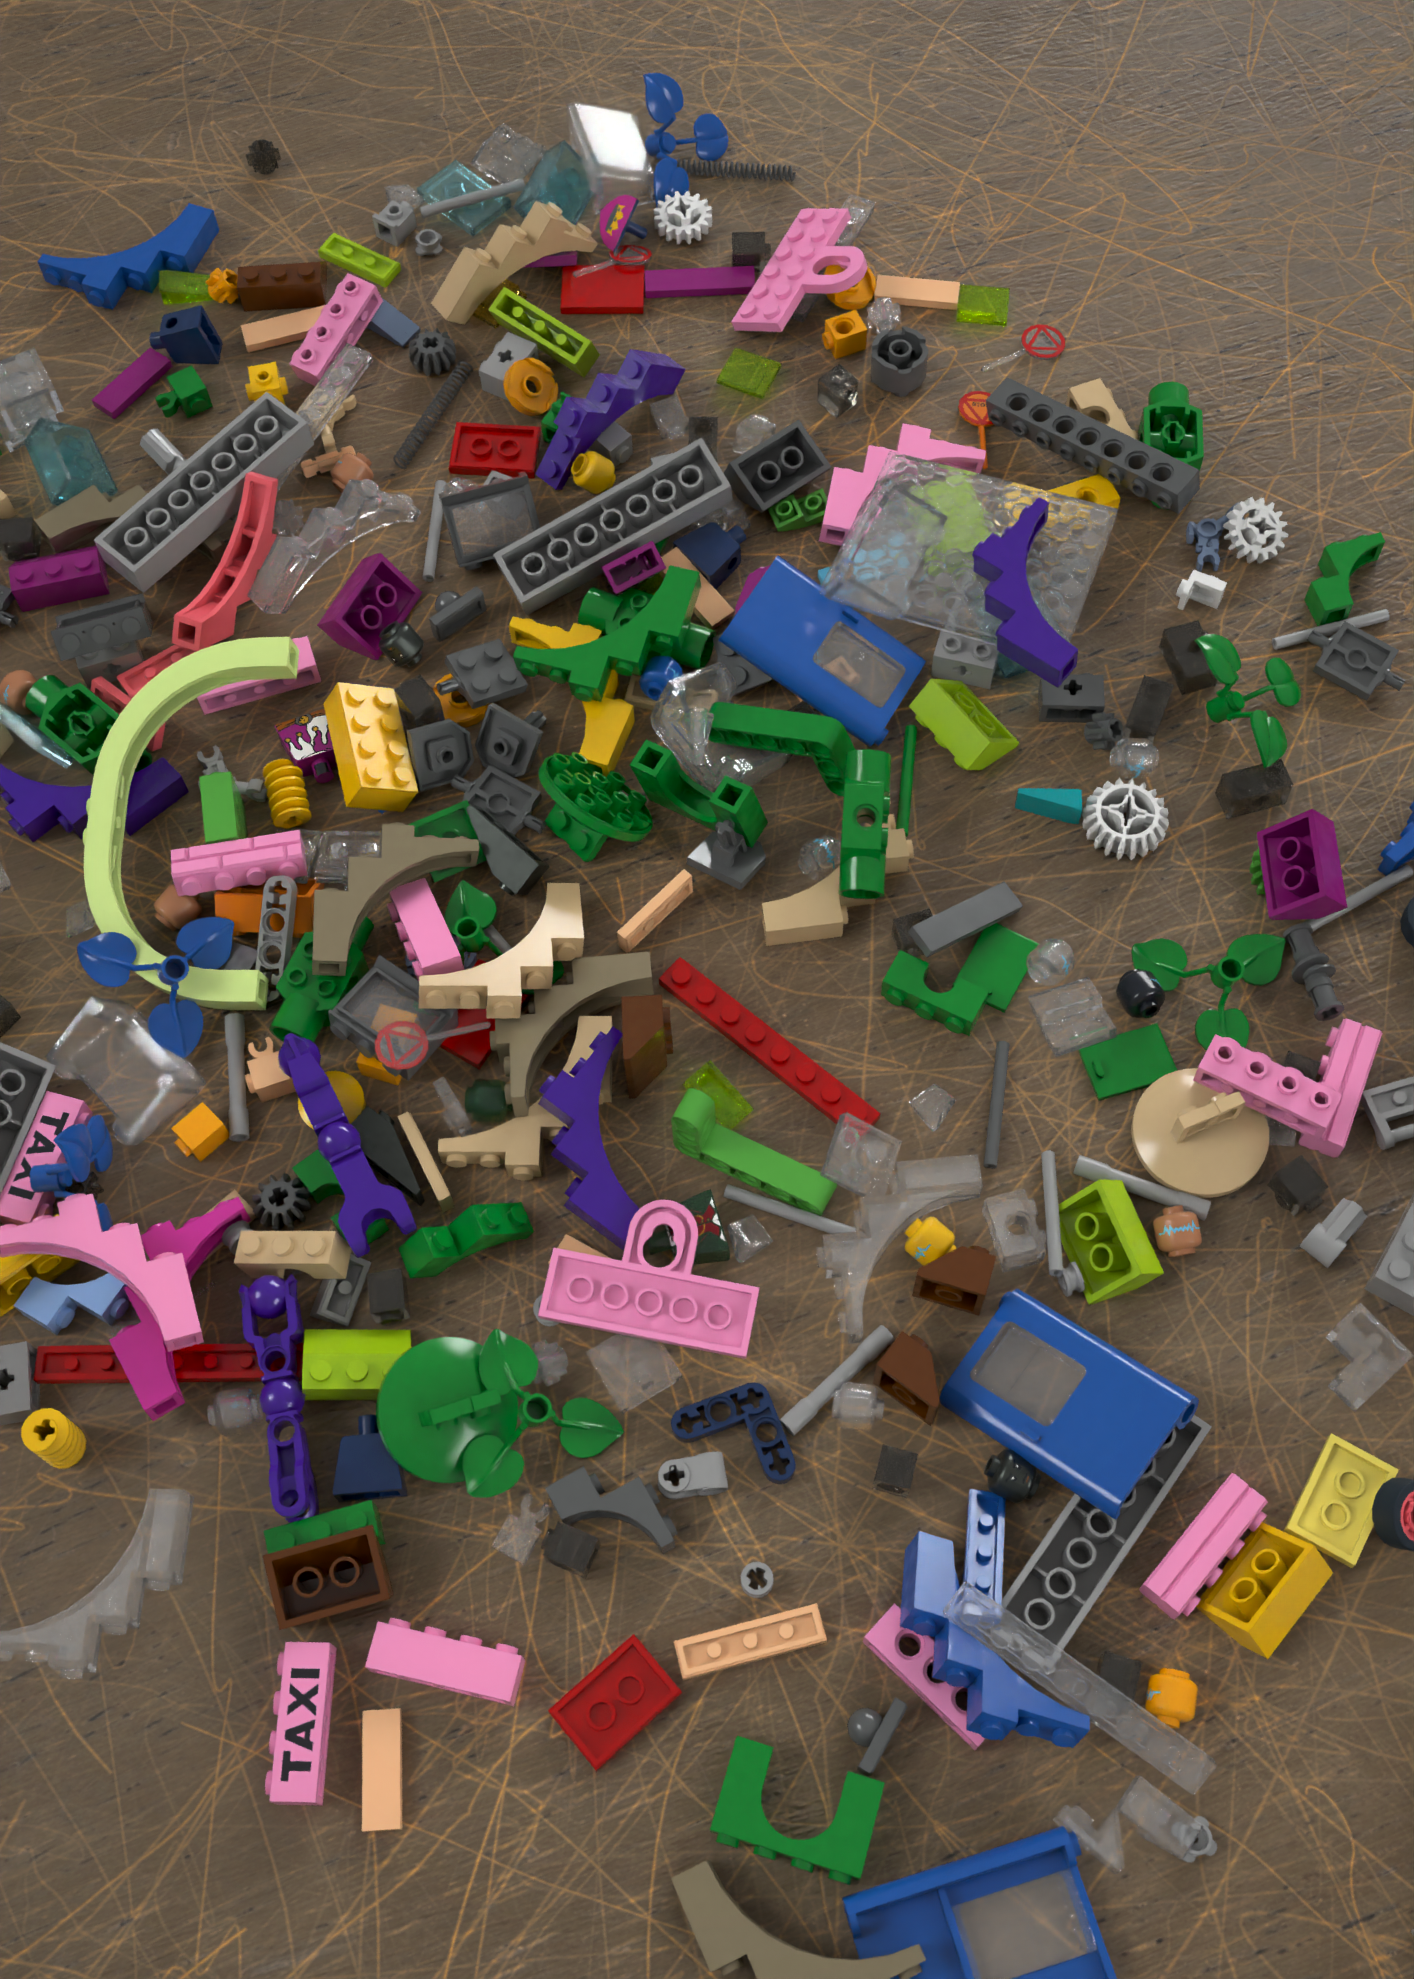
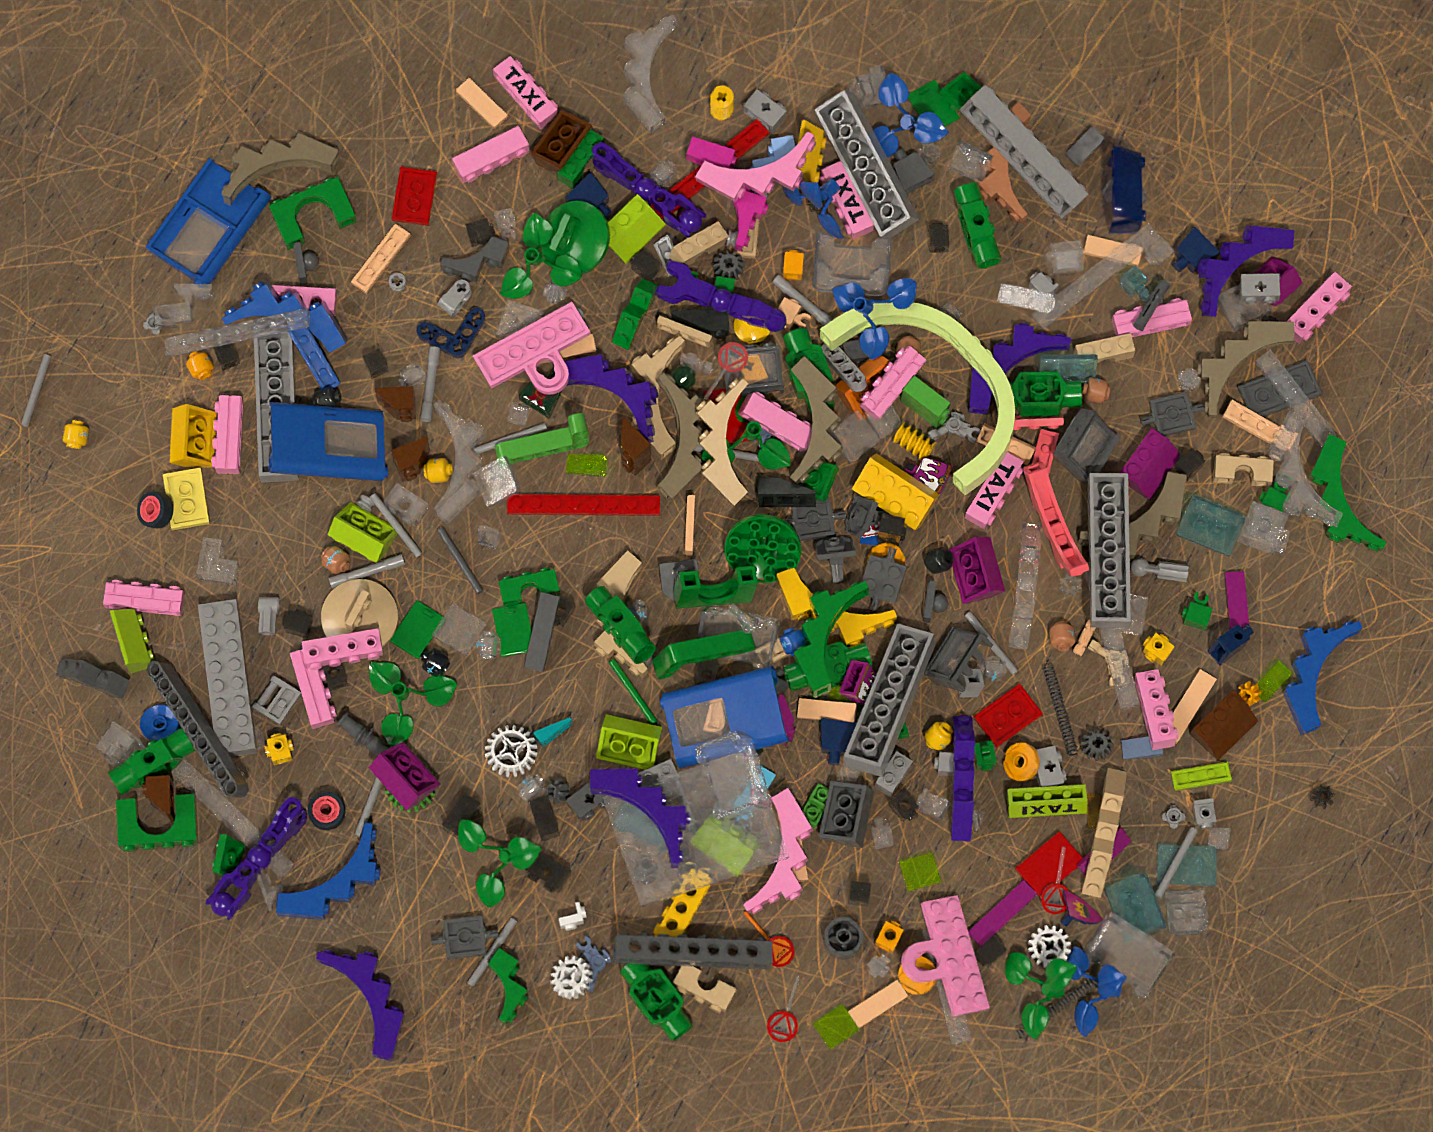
camera: 135 degrees right, 10 degrees up
(193, 729) = (1017, 447): none -> light nougat tile
(767, 158) = (1059, 974): none -> green plant

